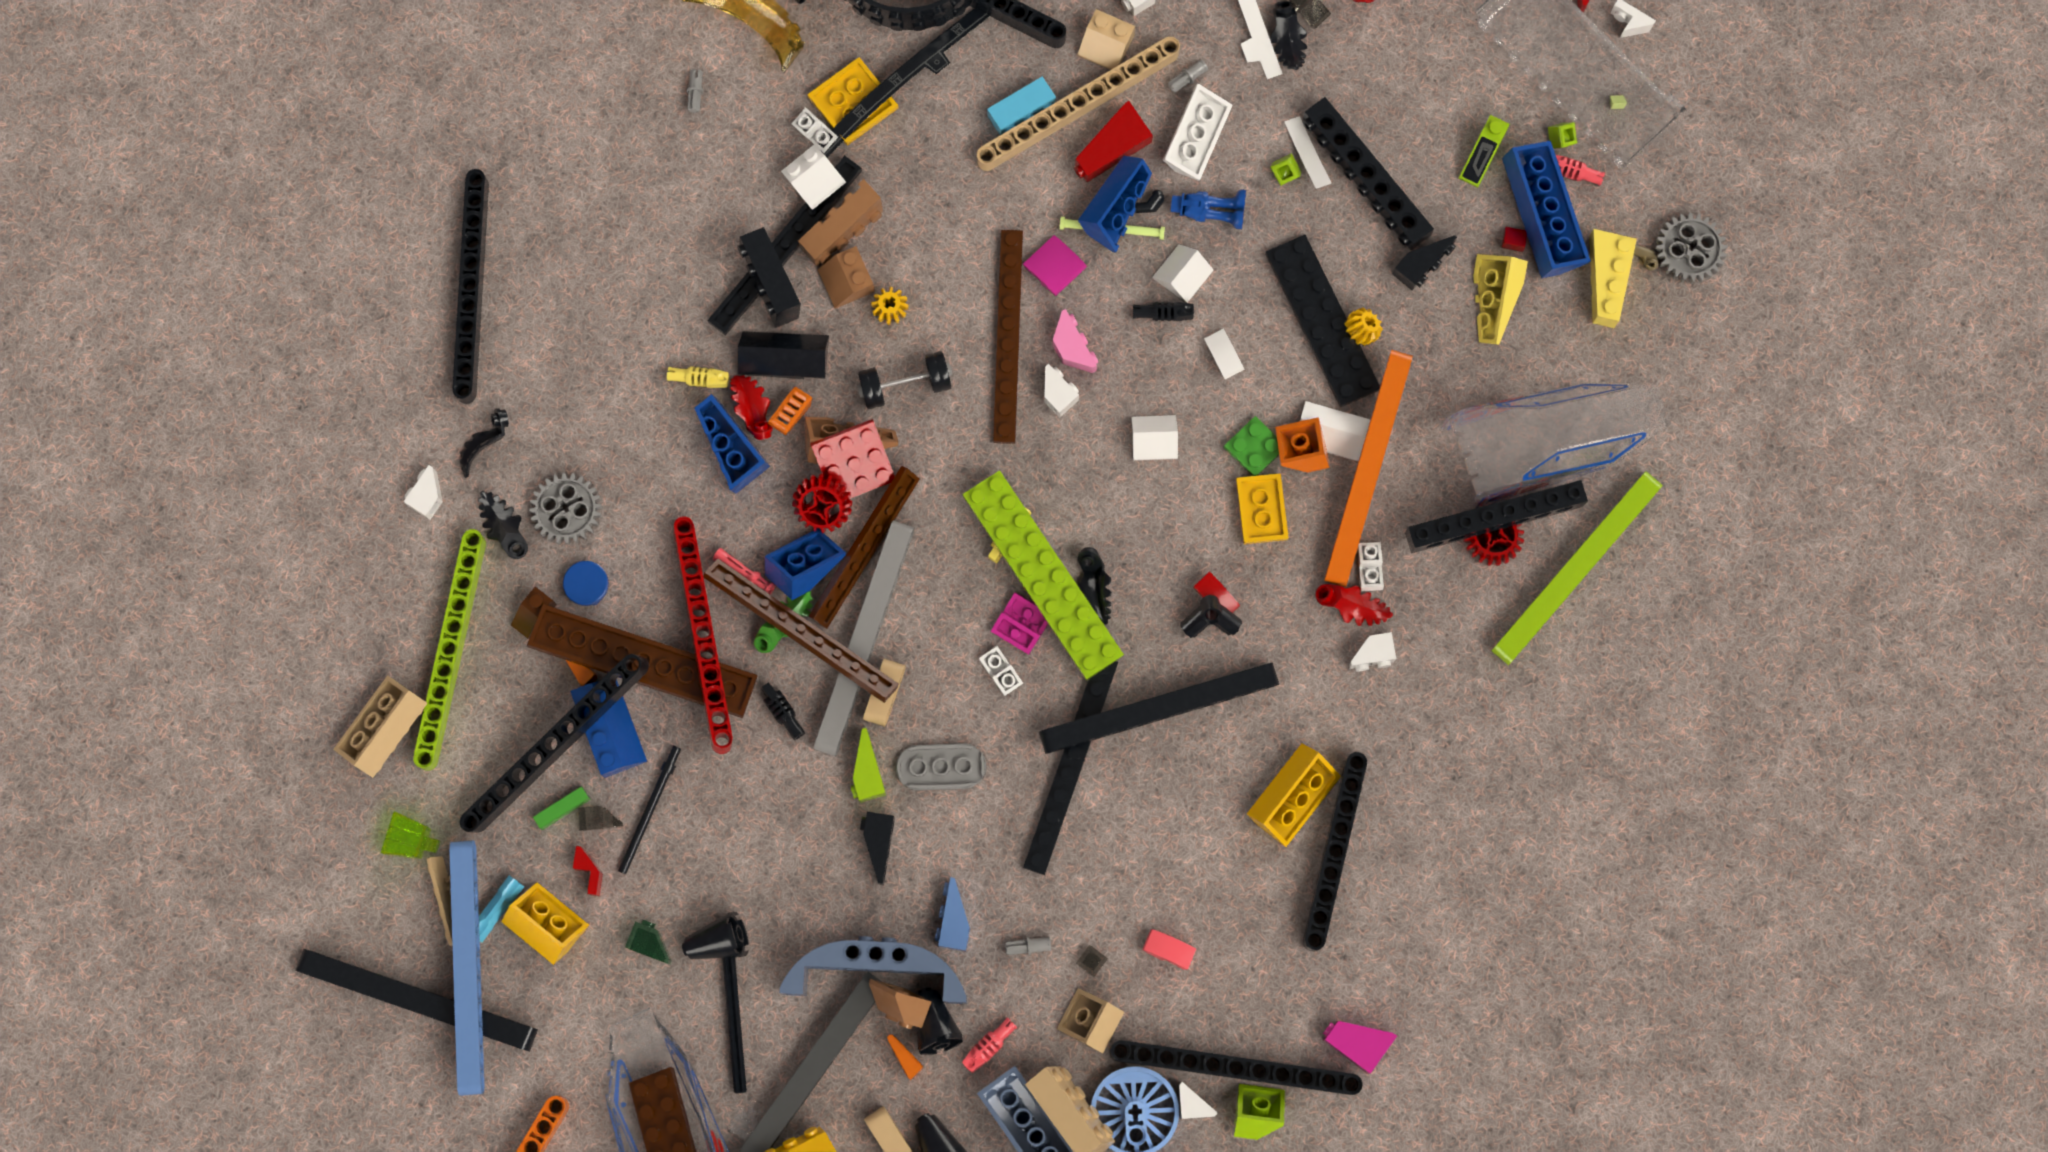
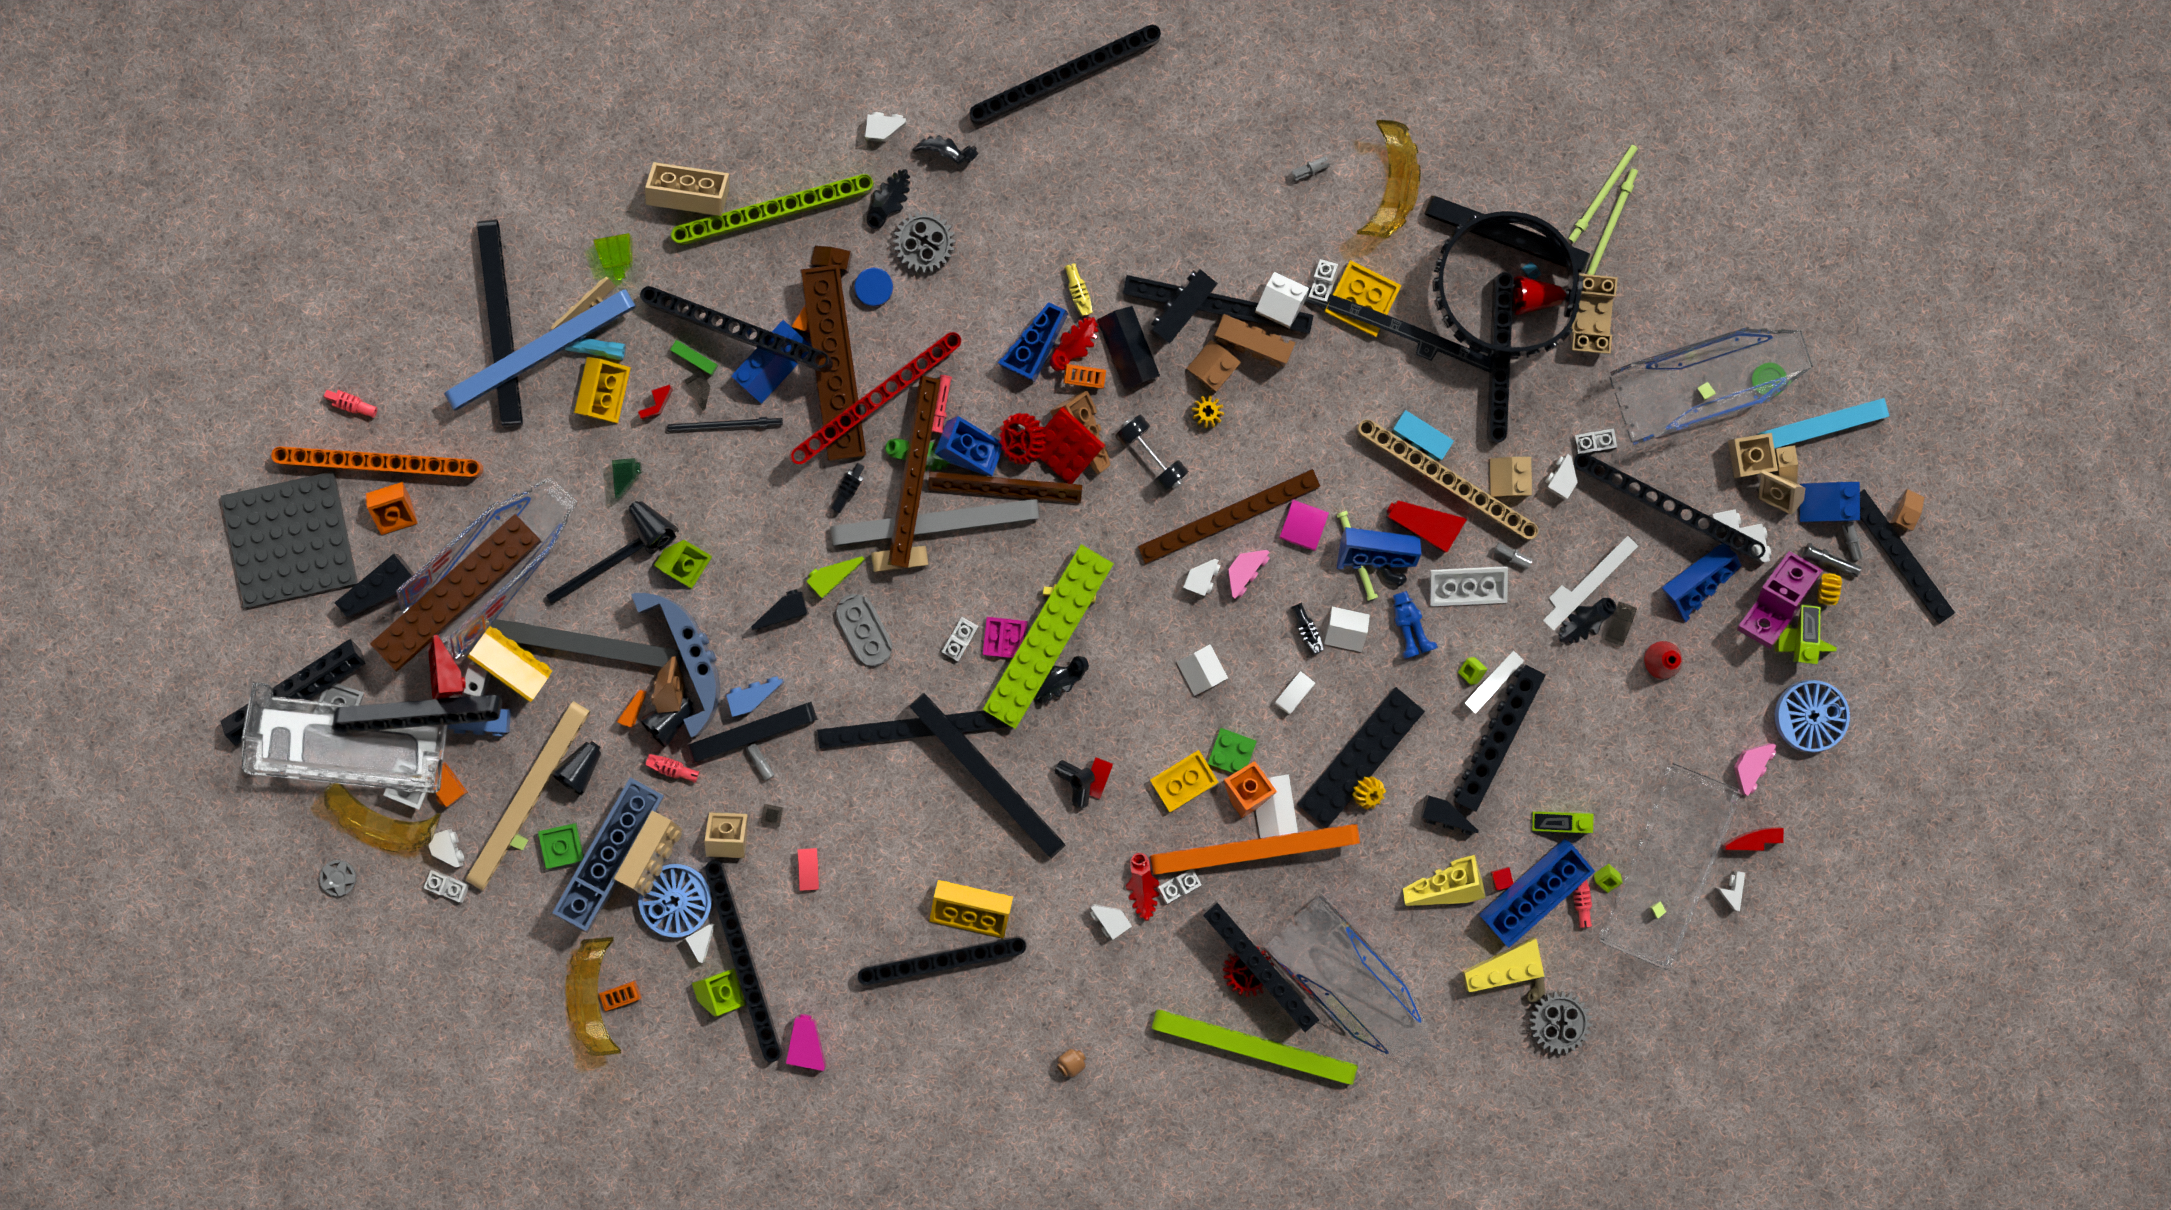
camera: 65 degrees right, 10 degrees up
(773, 924) = (683, 562): none -> lime slope
(992, 939) = (752, 732): none -> black beam
(1508, 766) = (1071, 1063): none -> medium nougat head

